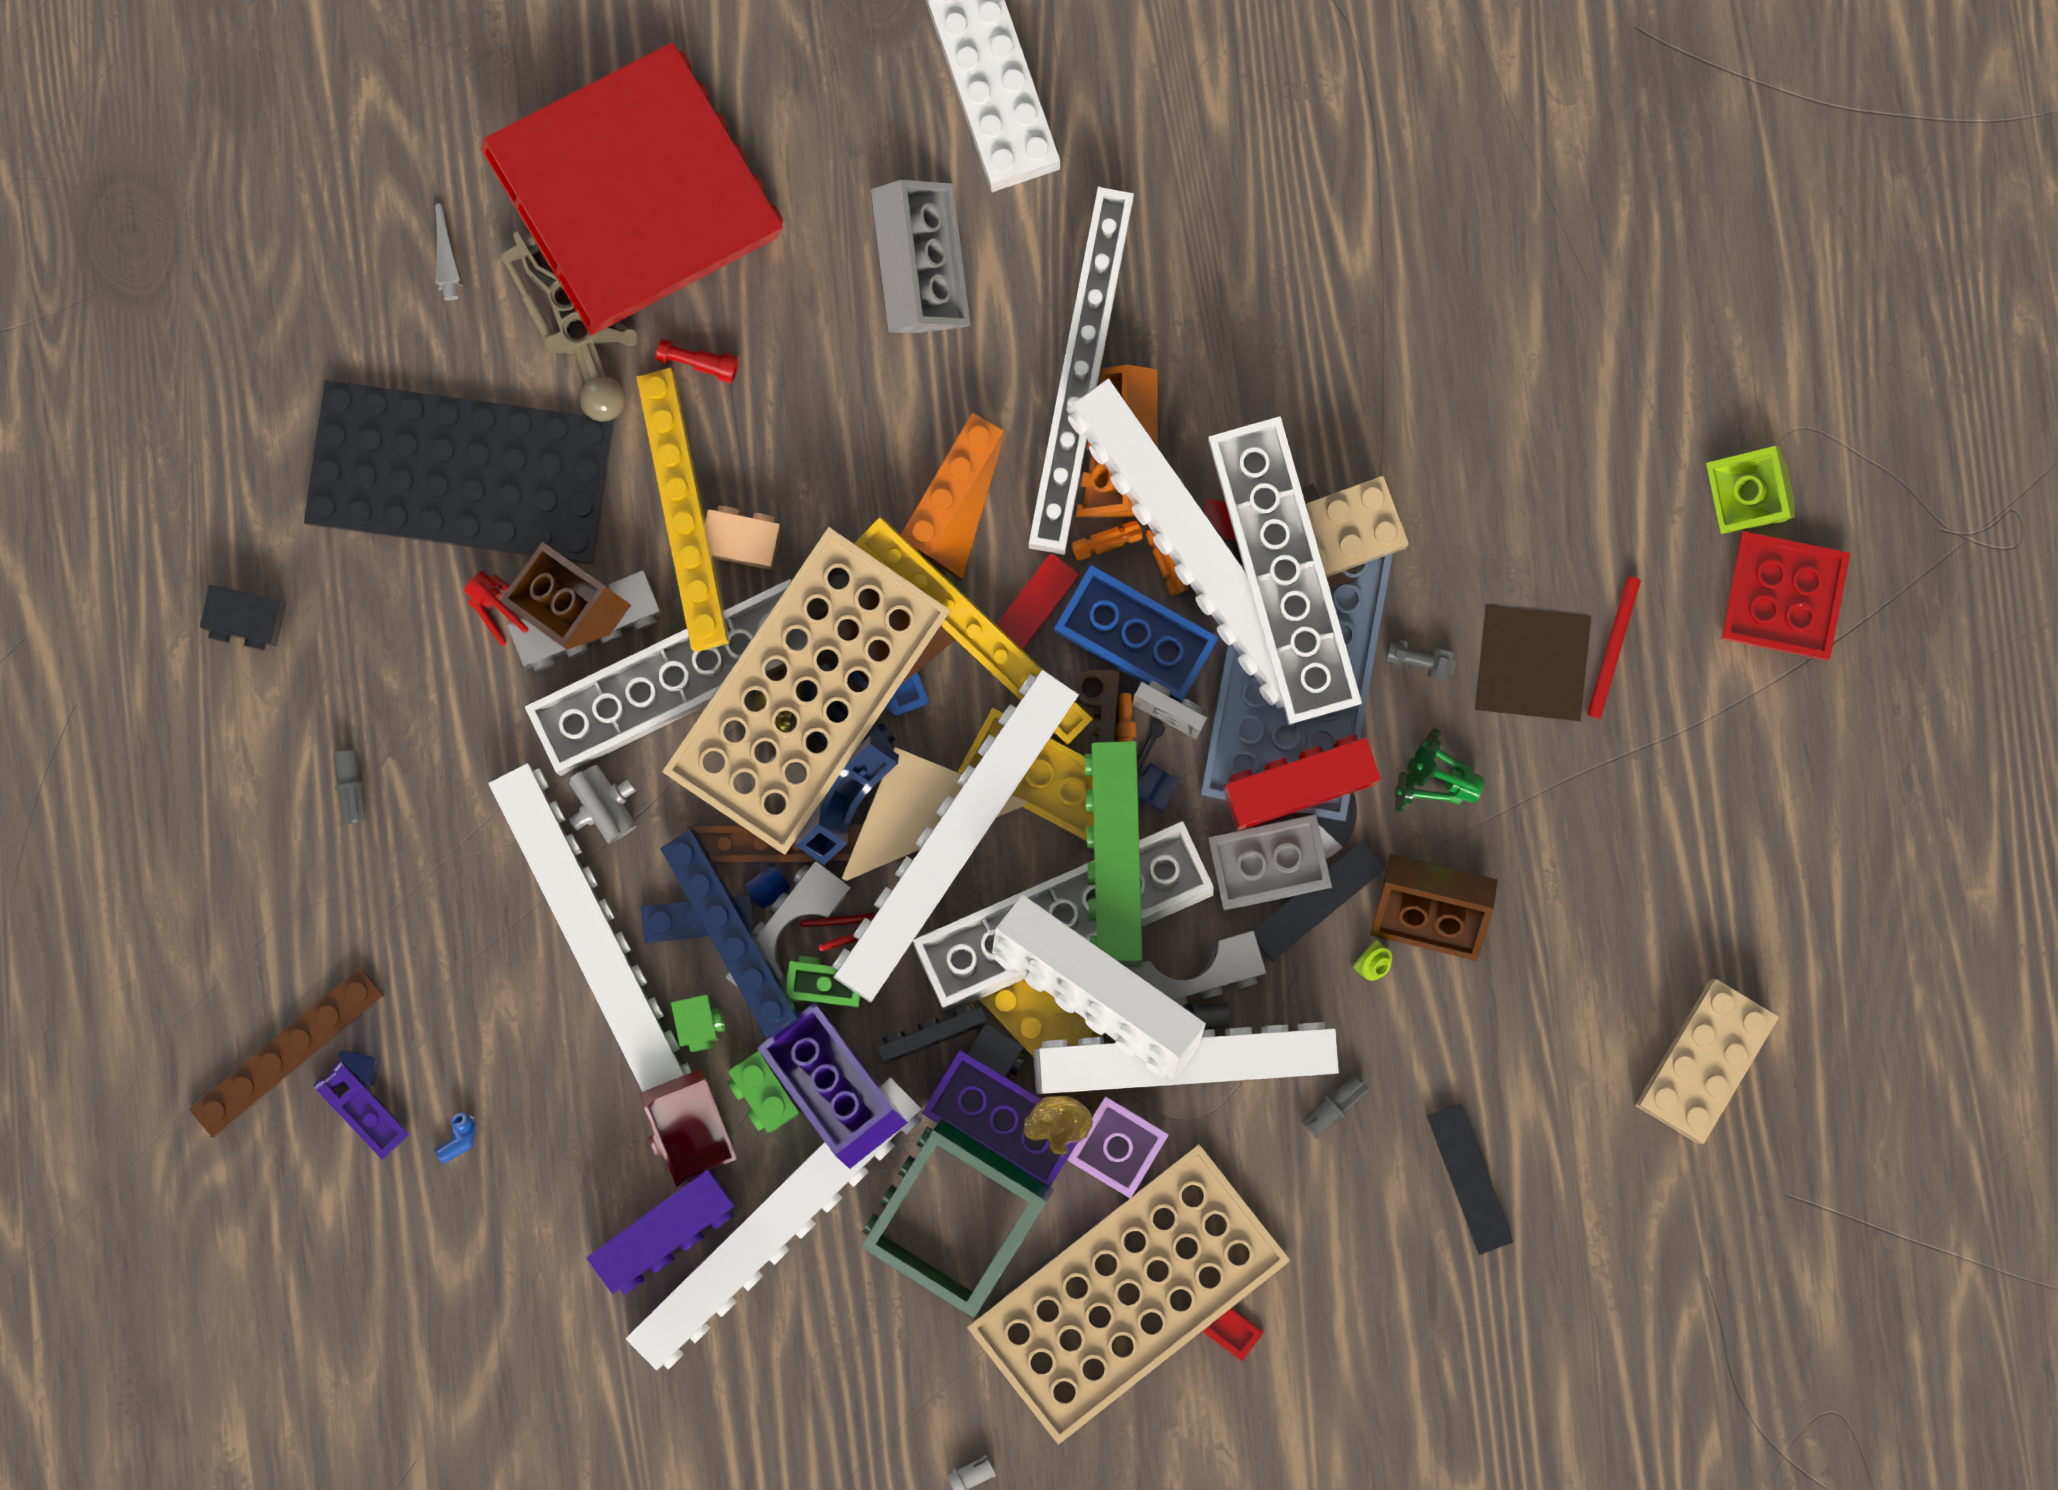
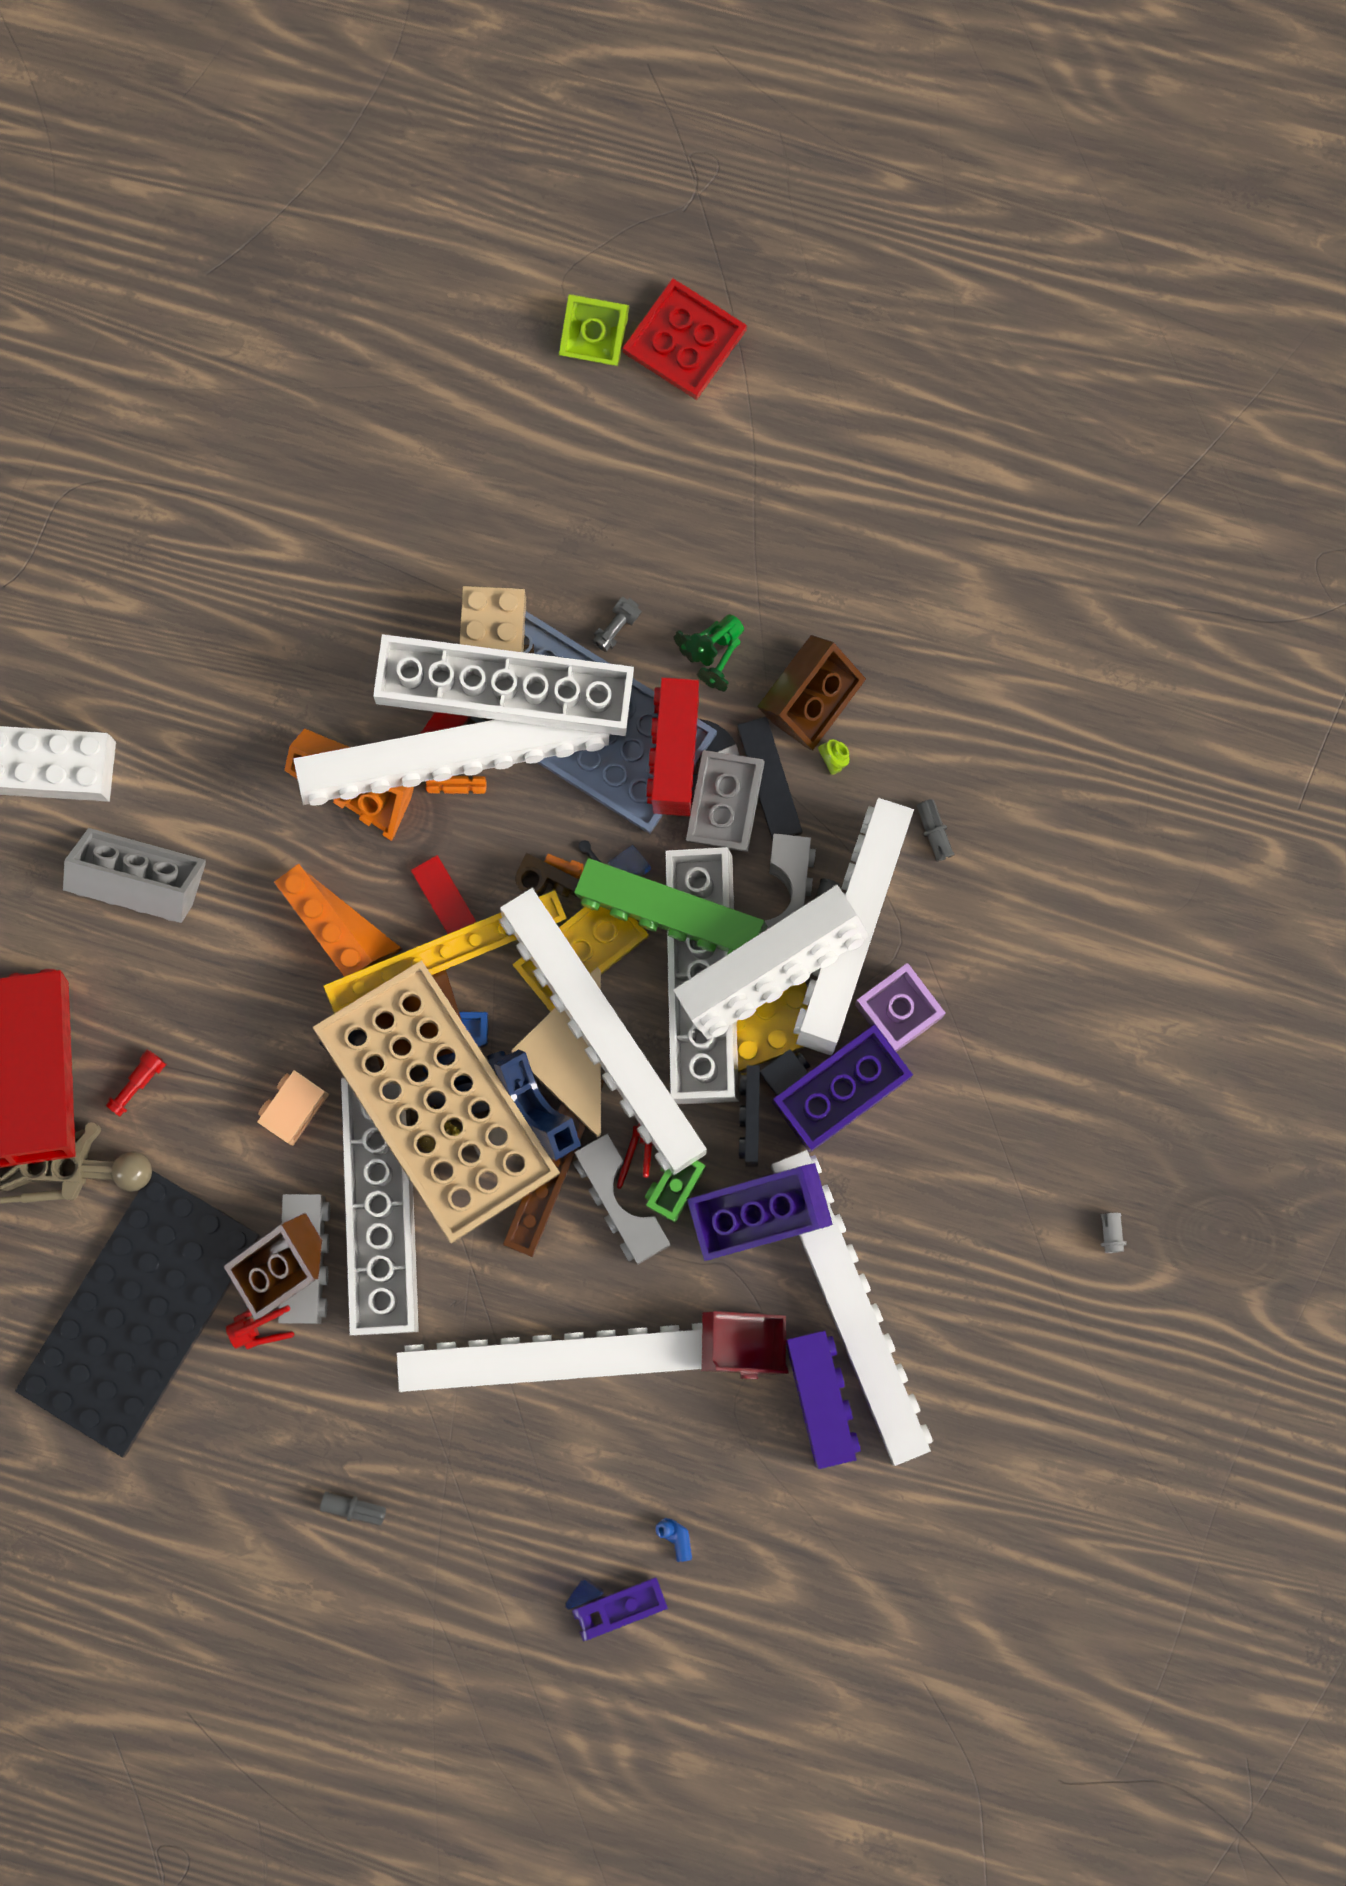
camera: 65 degrees left, 5 degrees down
(242, 616) = (175, 1540): black brick -> none
(286, 1052) = (547, 1653): reddish brown plate -> none
(602, 804) = (455, 1306): light grey pin -> none
(681, 921) = (580, 1268): dark blue plate -> none
(683, 510) = (249, 1142): yellow plate -> none
(698, 1022) = (664, 1300): bright green brick -> none
(730, 933) = (603, 1244): dark blue plate -> none
(763, 1092) = (742, 1271): bright green brick -> none
(767, 887) = (578, 1201): clear blue slope -> none
(989, 1164) = (870, 1113): window -> none
(1059, 1121) = (863, 1041): clear yellow hair -> none
(1081, 368) = (278, 786): white brick -> none
(1107, 540) = (420, 824): orange axle -> none
(1135, 633) = (504, 829): blue brick -> none
(1177, 1326) = (976, 1076): tan piece -> none
(1182, 716) = (575, 824): light grey plate -> none
(1234, 1333) = (1070, 986): red tile -> none
(1469, 1179) = (1032, 752): black tile -> none
(1533, 663) = (655, 544): dark brown sticker -> none
(1613, 647) = (669, 480): red bar -> none
(1706, 1061) = (1014, 538): tan brick -> none

